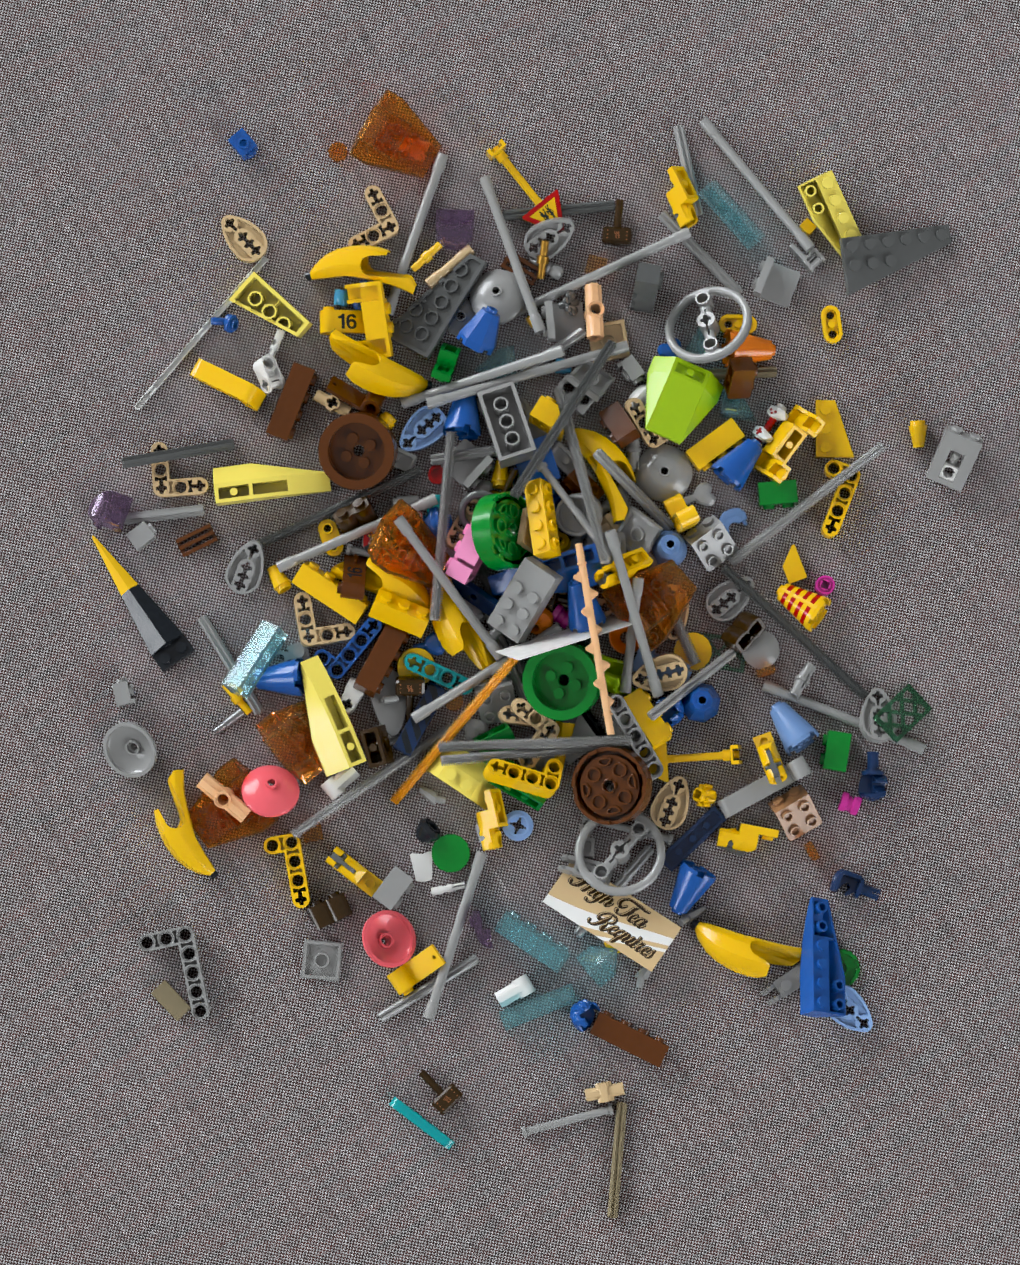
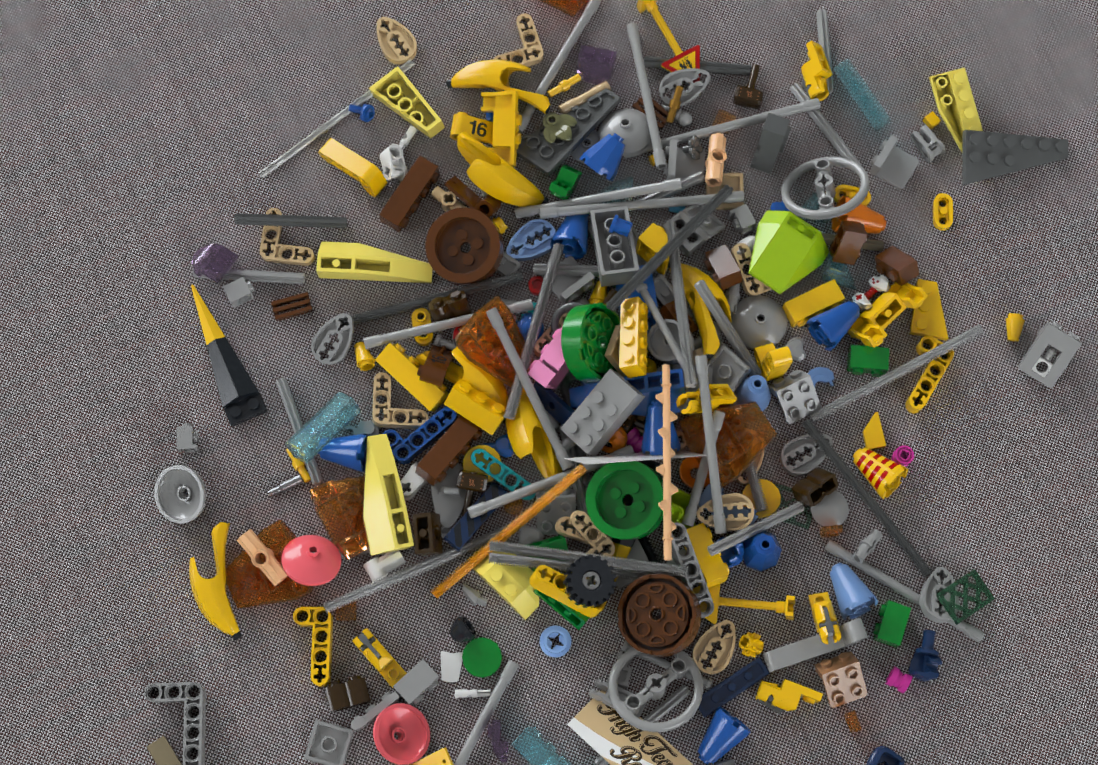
camera: 10 degrees right, 10 degrees down
(340, 297) = (475, 108): dark azure hose -> none
(358, 922) = (374, 710): none -> light grey hinge
(430, 308) = (559, 128): none -> olive plate
(491, 820) = (529, 631): yellow plate -> none
(510, 406) = (620, 226): none -> blue bush
(529, 773) = (577, 585): none -> black bush
(791, 393) = (896, 265): none -> reddish brown brick
(800, 236) = (925, 124): light grey piece -> none

